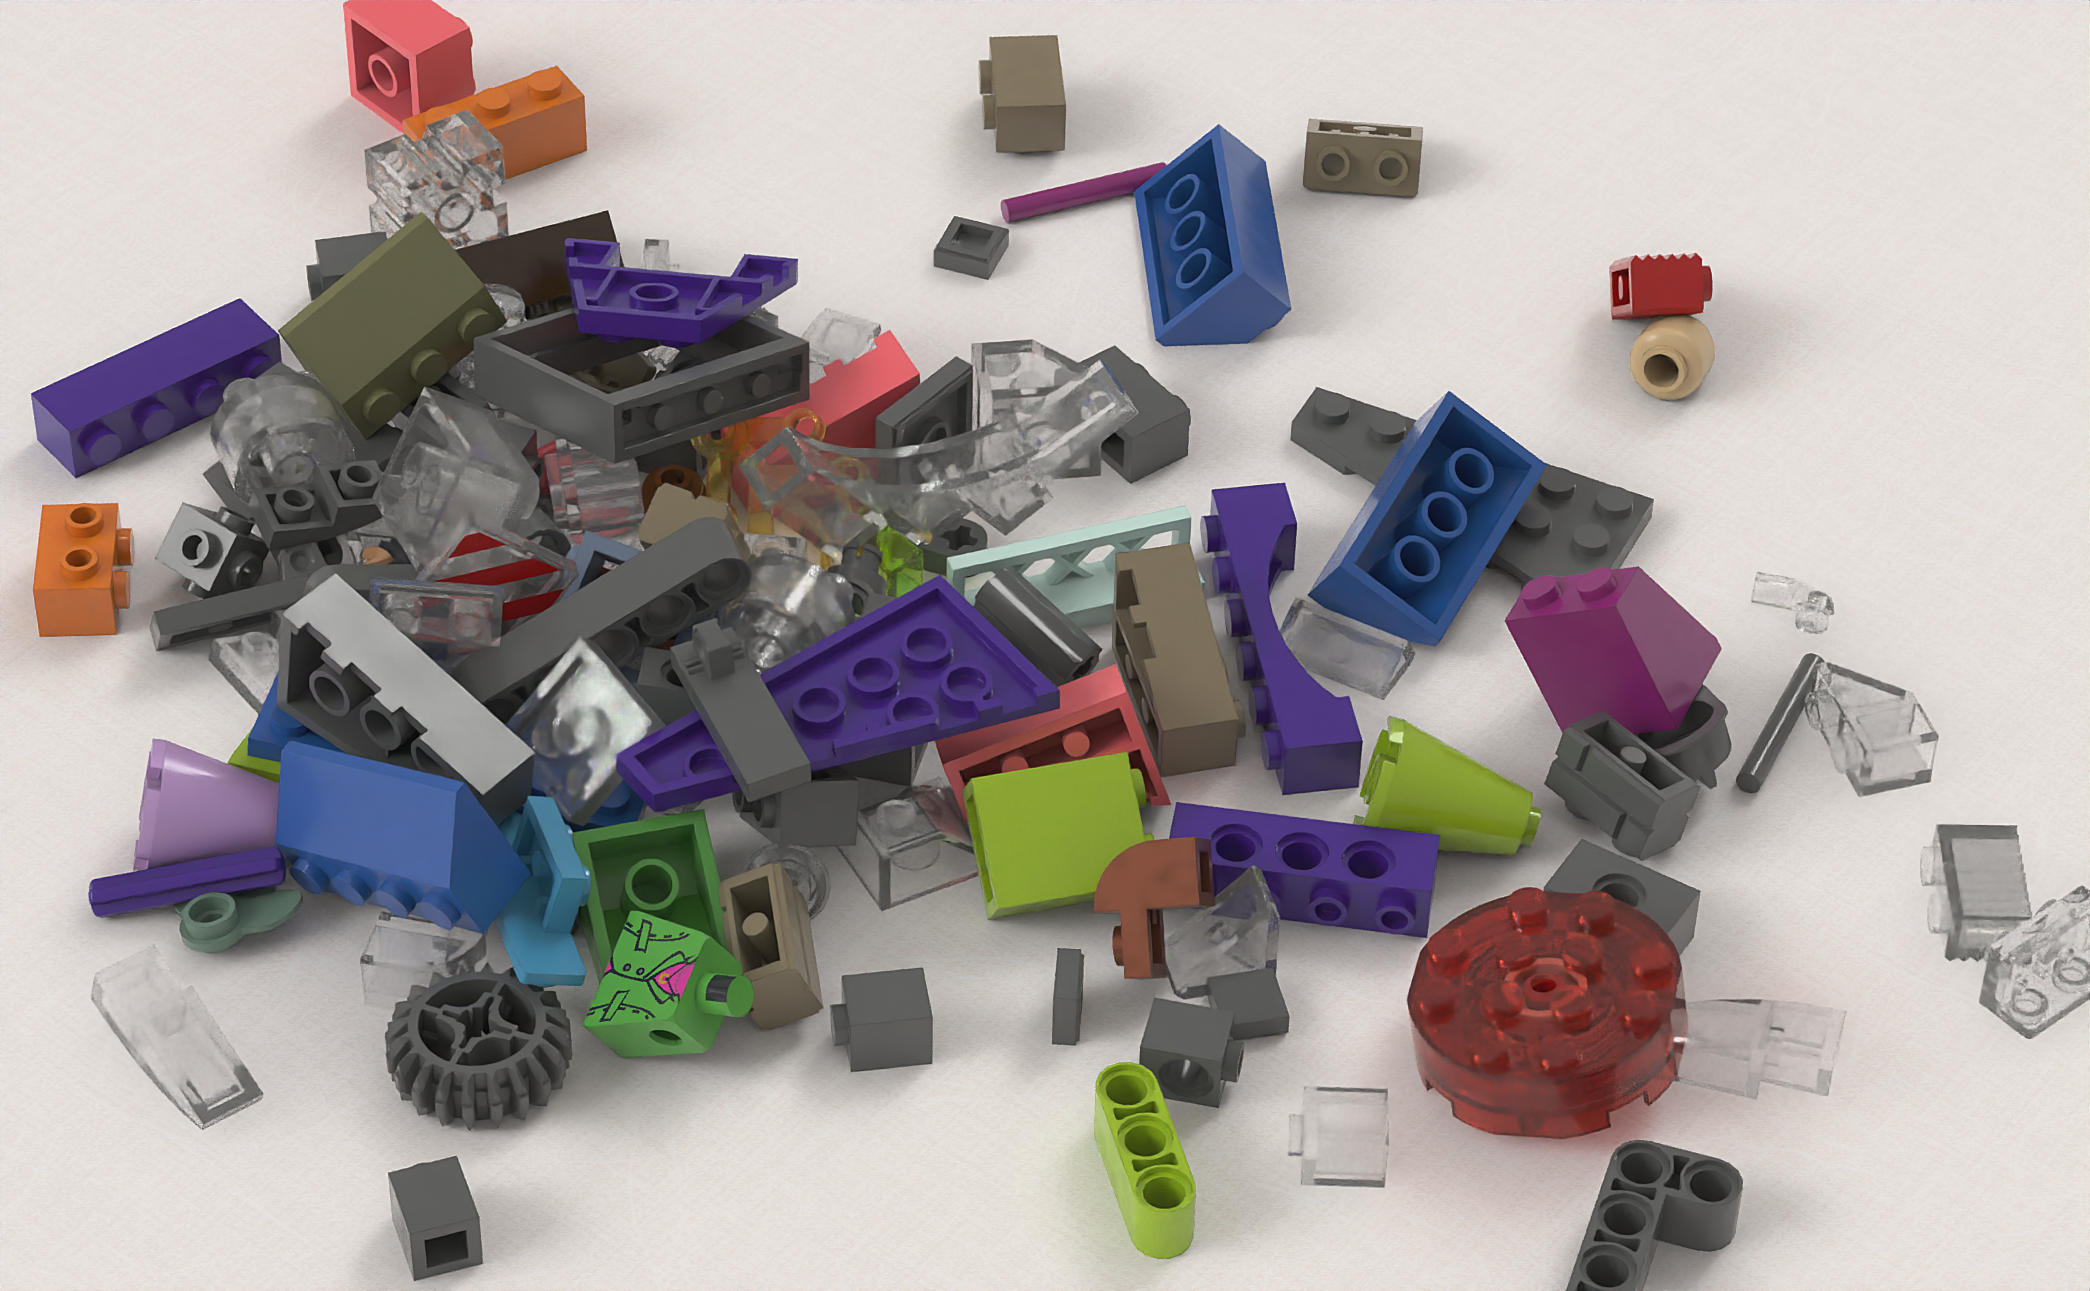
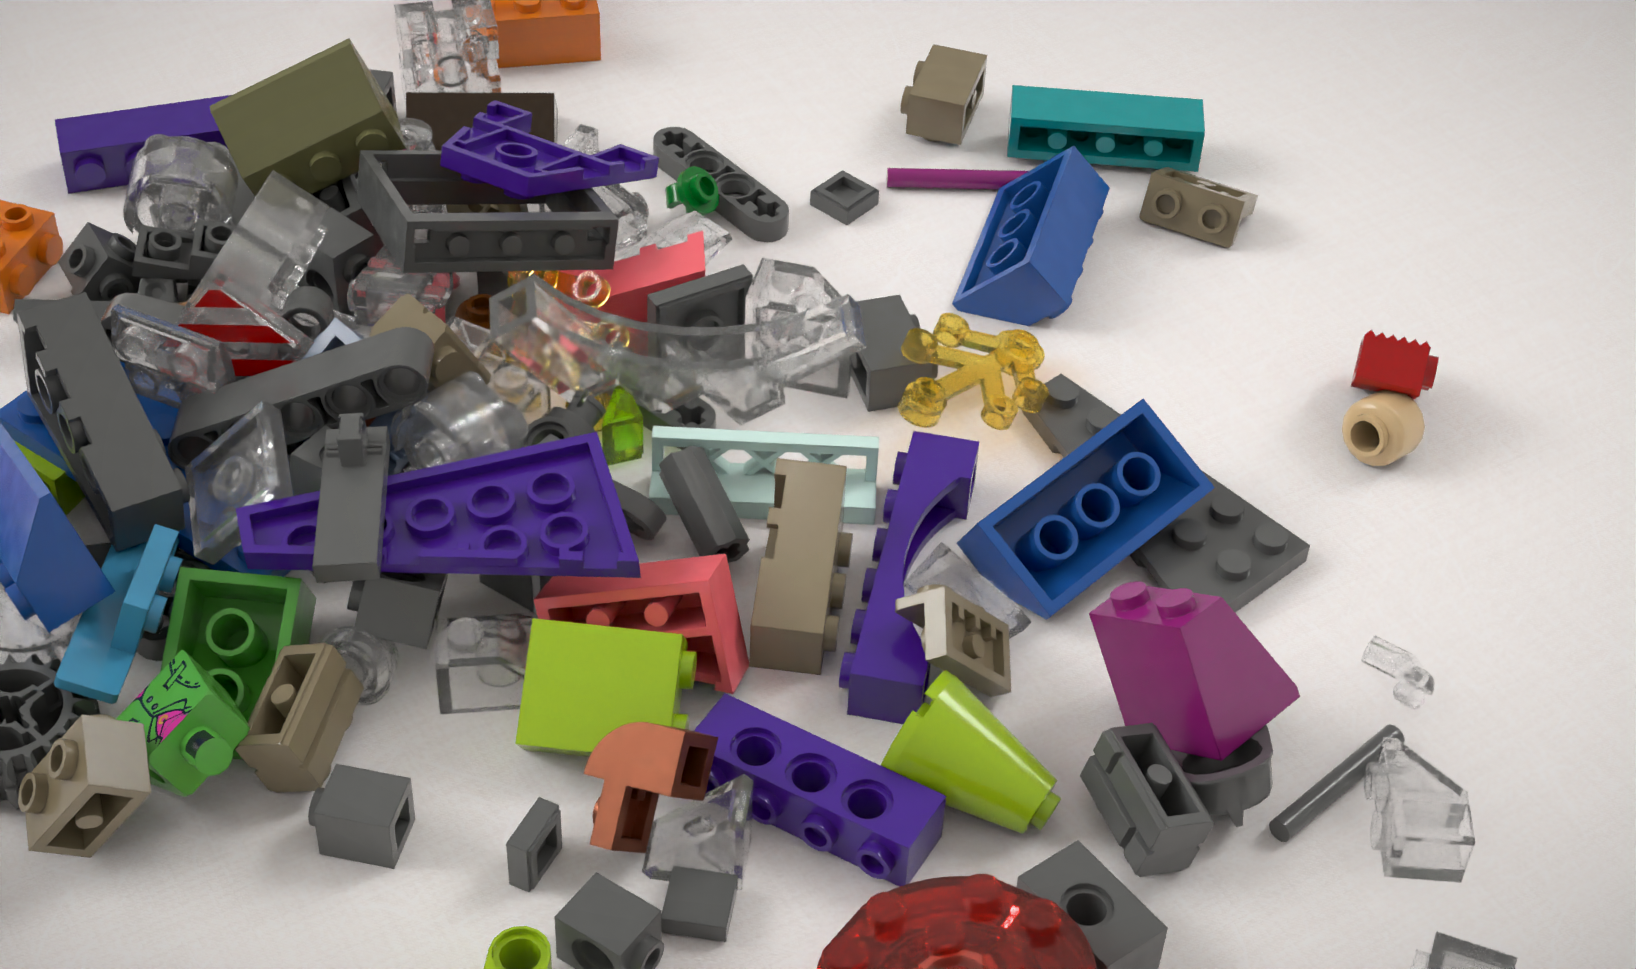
camera: 20 degrees right, 0 degrees up
(618, 1064) = (85, 786): none -> dark tan brick
(817, 287) = (694, 190): none -> green plate
(884, 292) = (756, 214): none -> dark grey beam
(1226, 85) = (1106, 127): none -> teal brick
(1257, 380) = (1009, 352): none -> clear yellow plant
(1370, 679) = (960, 637): none -> dark tan bracket

